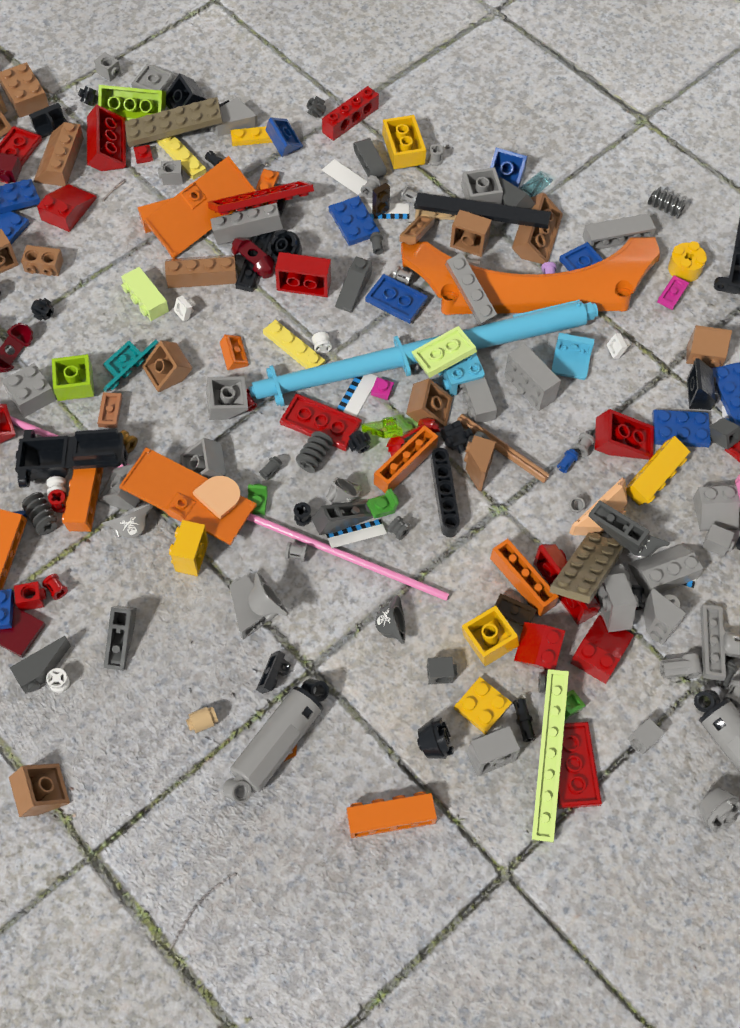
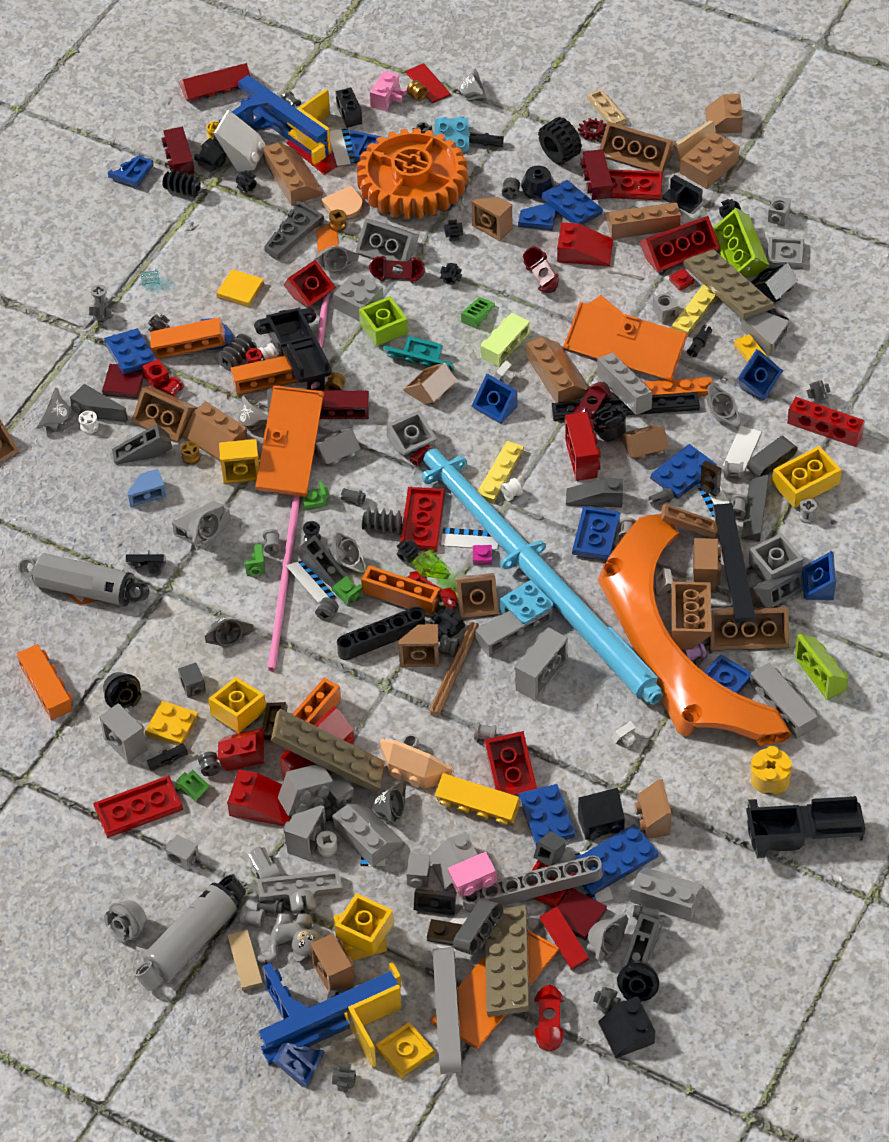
camera: 75 degrees right, 10 degrees down
(27, 710) = (56, 412): none -> light grey hat
(42, 260) = (507, 253): medium nougat brick -> none
(67, 243) = (536, 261): none -> dark red piece
(85, 603) = (162, 409): none -> medium nougat slope
(102, 314) = (475, 321): none -> bright green slope
(109, 410) = (364, 361): nougat plate -> none
(135, 562) = (210, 427): none -> medium nougat slope
(147, 588) = (190, 452): none -> pearl gold wheel
(158, 436) = (345, 405): none -> dark red brick
(176, 644) = (146, 488): none -> medium blue slope
(202, 719) = (86, 527): tan brick -> none
(212, 321) = (496, 398): none -> blue slope
(219, 495) = (298, 461): light nougat tile -> none
(233, 352) = (473, 429): orange slope -> none
(261, 196) = (658, 379): red plate -> none
(304, 169) = (722, 405): none -> light grey hat
(313, 231) = (645, 441): none -> medium nougat slope
(316, 568) = (256, 565): none -> bright green bracket
(399, 178) = (755, 508): none -> dark grey slope
(444, 351) = (529, 576): yellowish green plate -> none
(470, 288) = (617, 576): light grey brick -> none
(521, 255) = (690, 613): none -> medium nougat slope
(536, 184) = (819, 613): clear light blue slope -> none
(550, 756) = (135, 777): yellowish green plate -> none
(570, 457) = (461, 724): blue pin -> none
(572, 356) = (589, 698): medium azure bracket -> none
(597, 198) = (820, 666): none -> lime slope
(620, 527) = (381, 767): dark grey slope -> none
(667, 202) = (850, 735): dark grey piece -> none
(673, 292) = (723, 769): dark pink plate -> none

